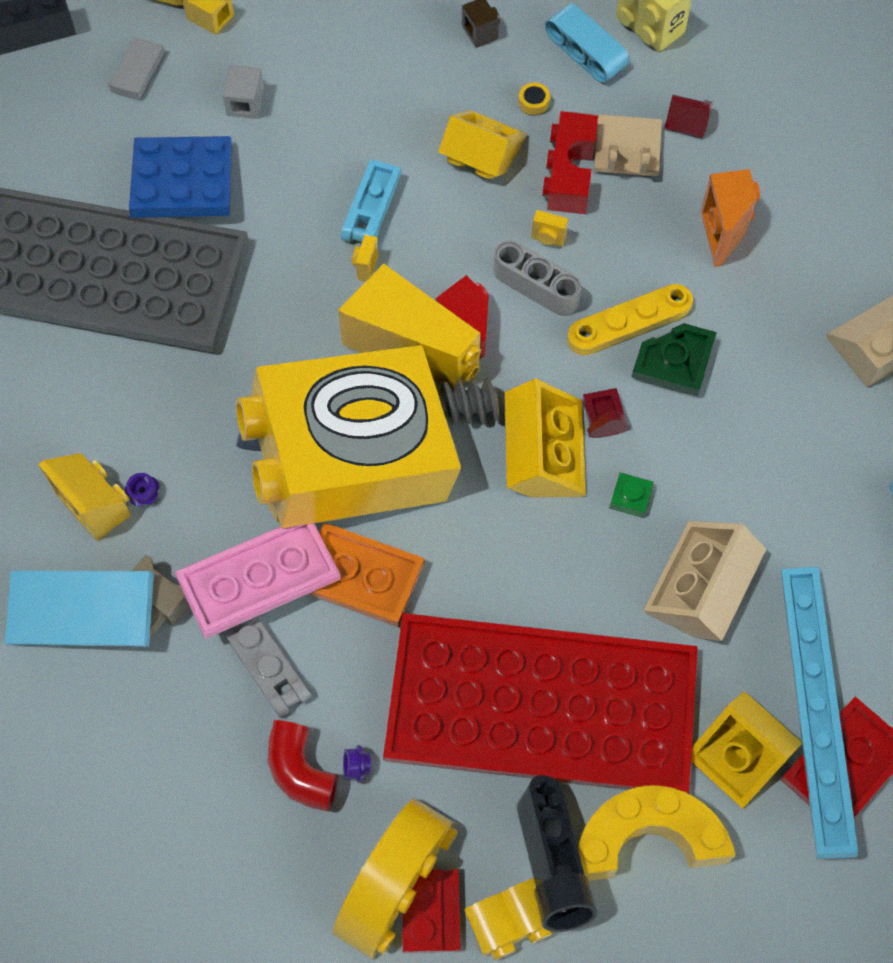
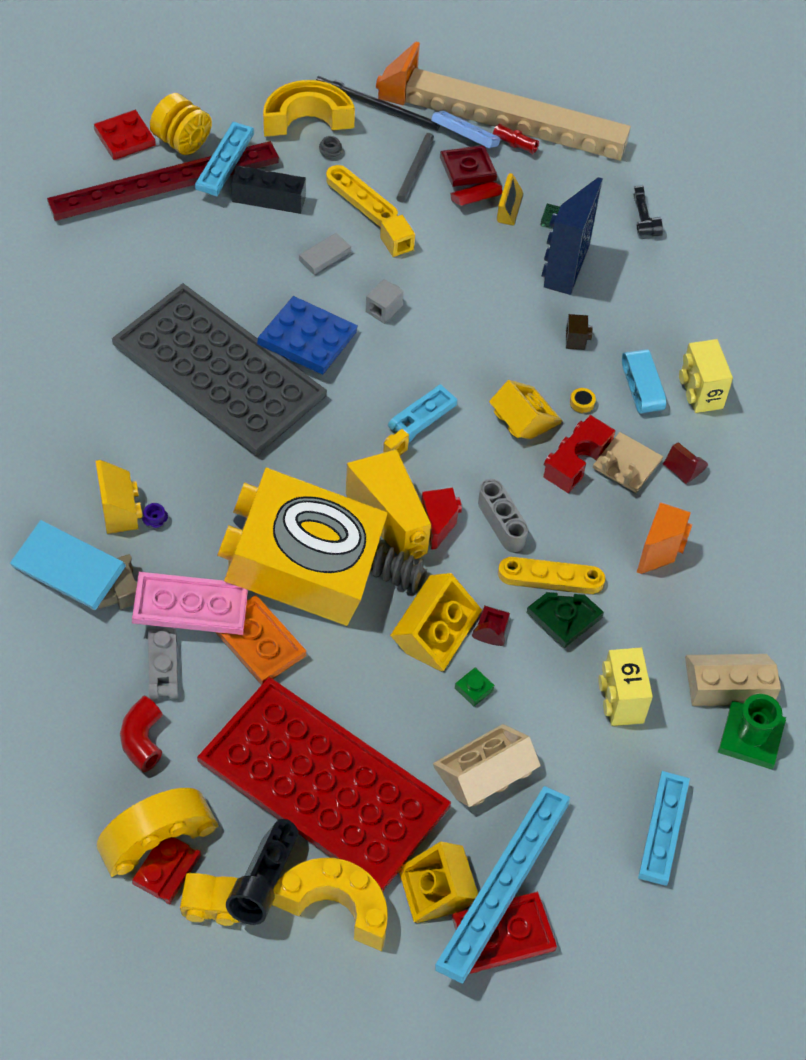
camera: 25 degrees right, 10 degrees down
(356, 764) = (178, 752): dark purple plate -> none
(549, 228) = (533, 488): yellow plate -> none
(800, 406) = (625, 687): none -> light yellow brick

